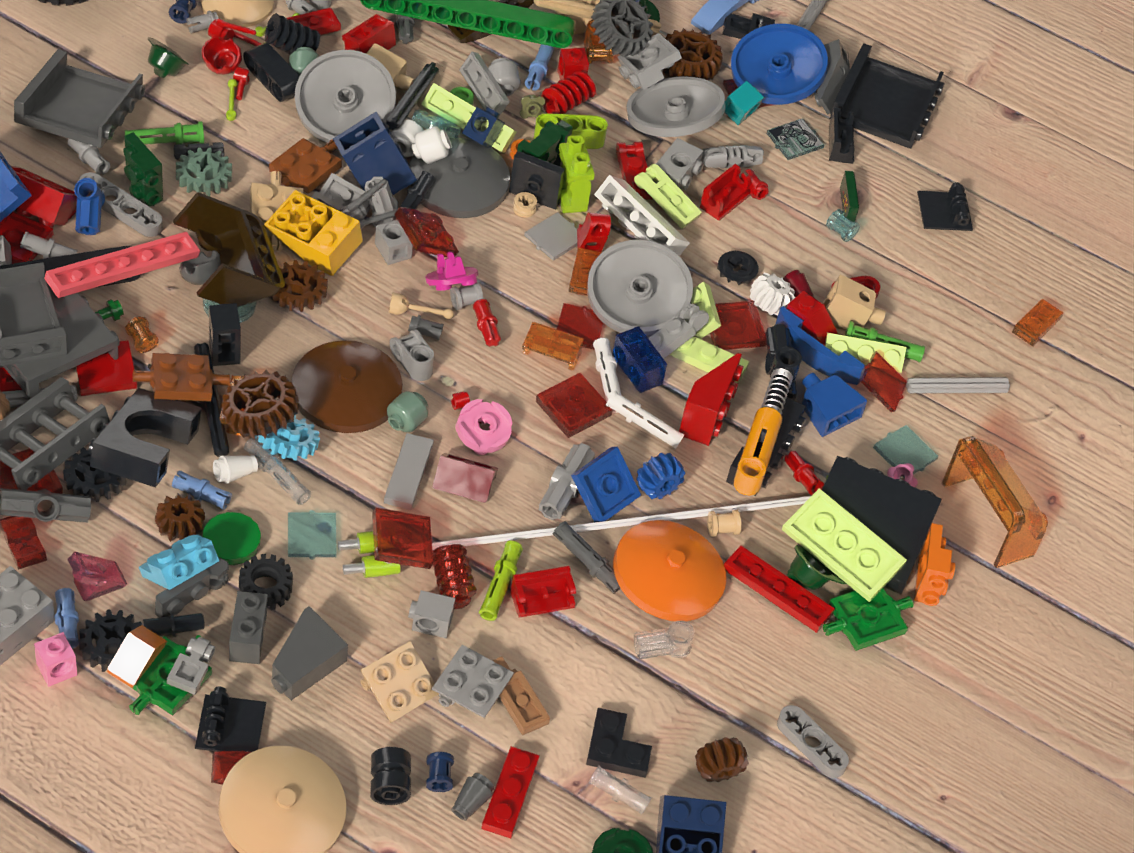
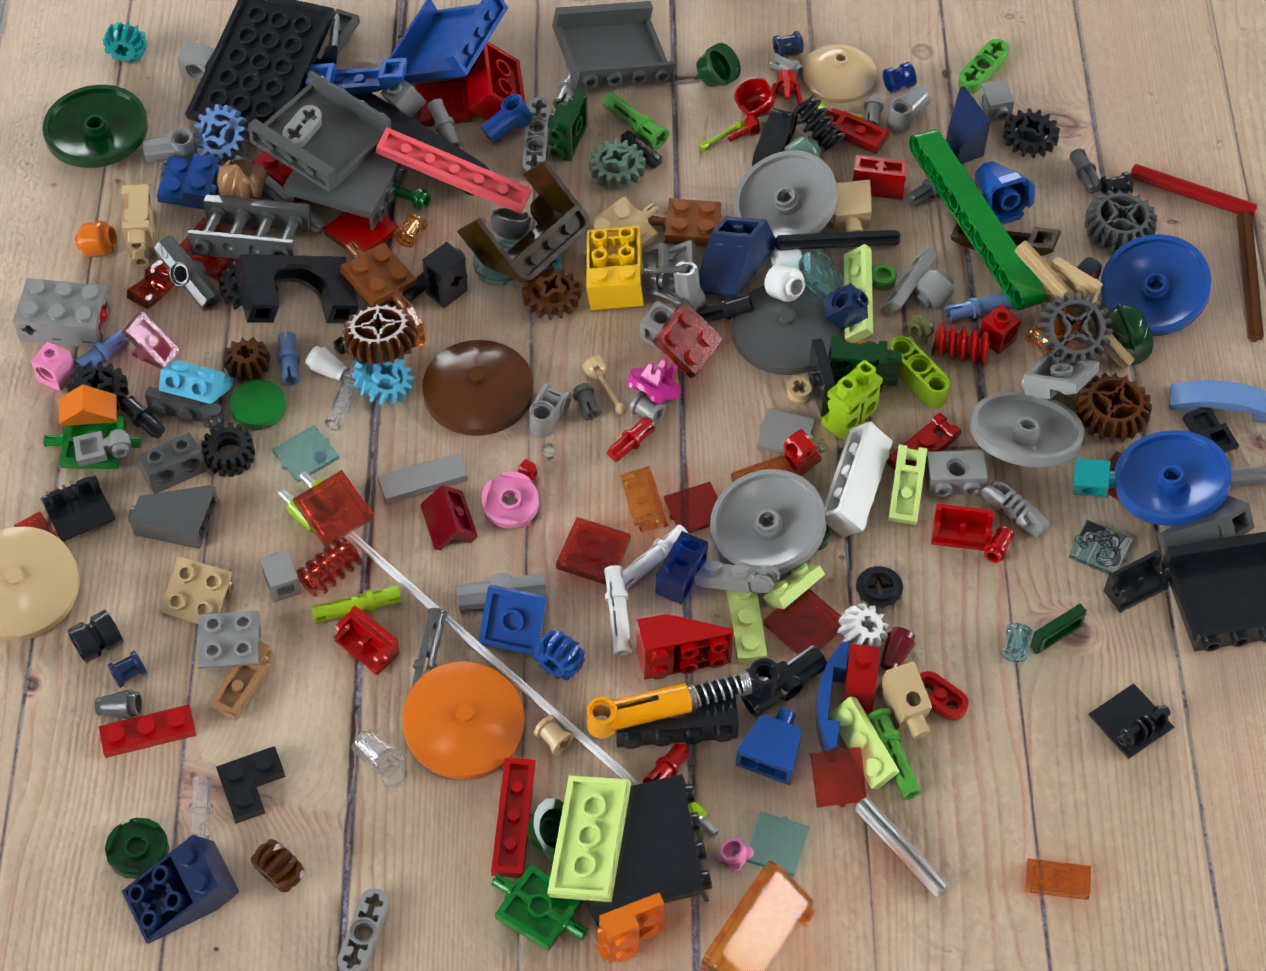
camera: 65 degrees right, 5 degrees up
(407, 411) = (477, 439): sand green head -> none

